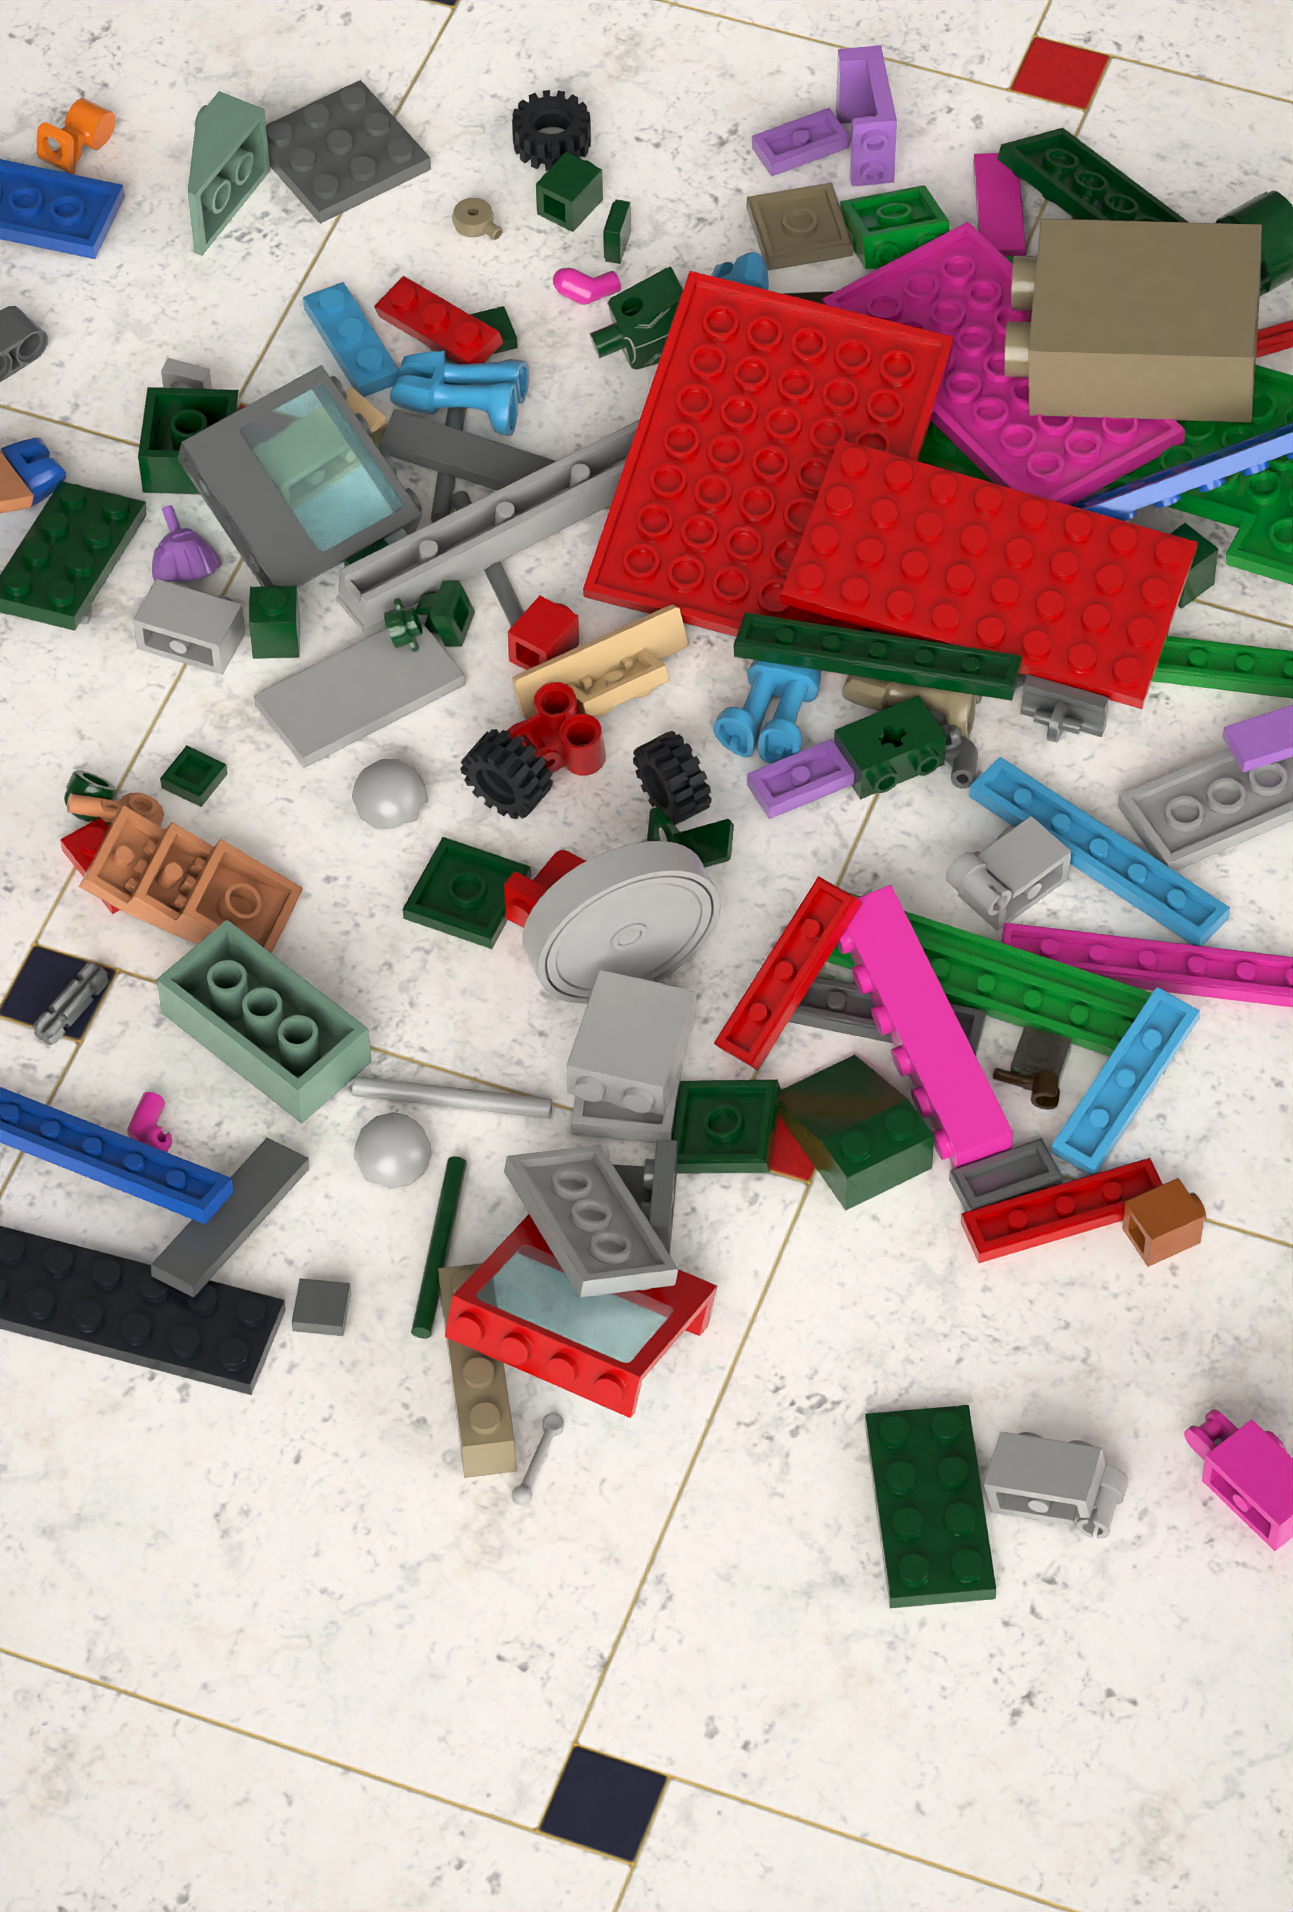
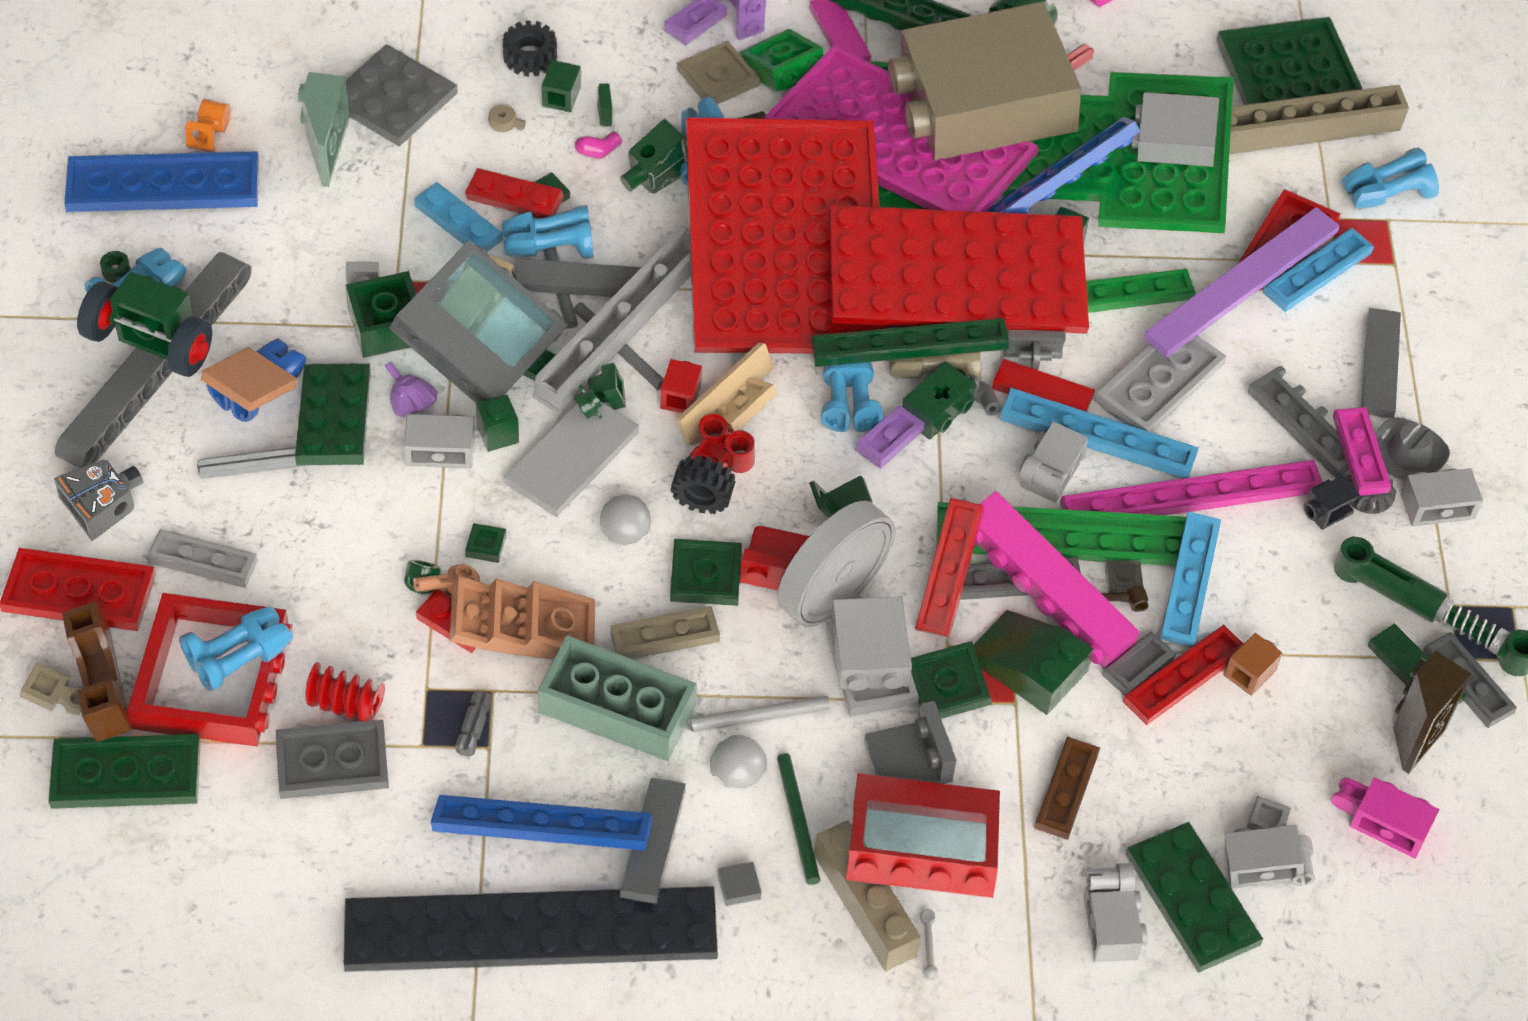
camera: 25 degrees left, 0 degrees up
(144, 1125) = (561, 791): dark pink arm -> none
(371, 957) = (665, 633): none -> dark tan plate
(590, 1221) = (904, 771): light grey plate -> none
(672, 777) = (812, 457): black tyre -> none
(800, 1493) = (1113, 913): none -> light grey hinge
(824, 1313) = (1067, 788): none -> reddish brown tile
(1052, 767) = (1042, 385): none -> red tile
(1090, 1426) = (1267, 813): none -> light grey tile

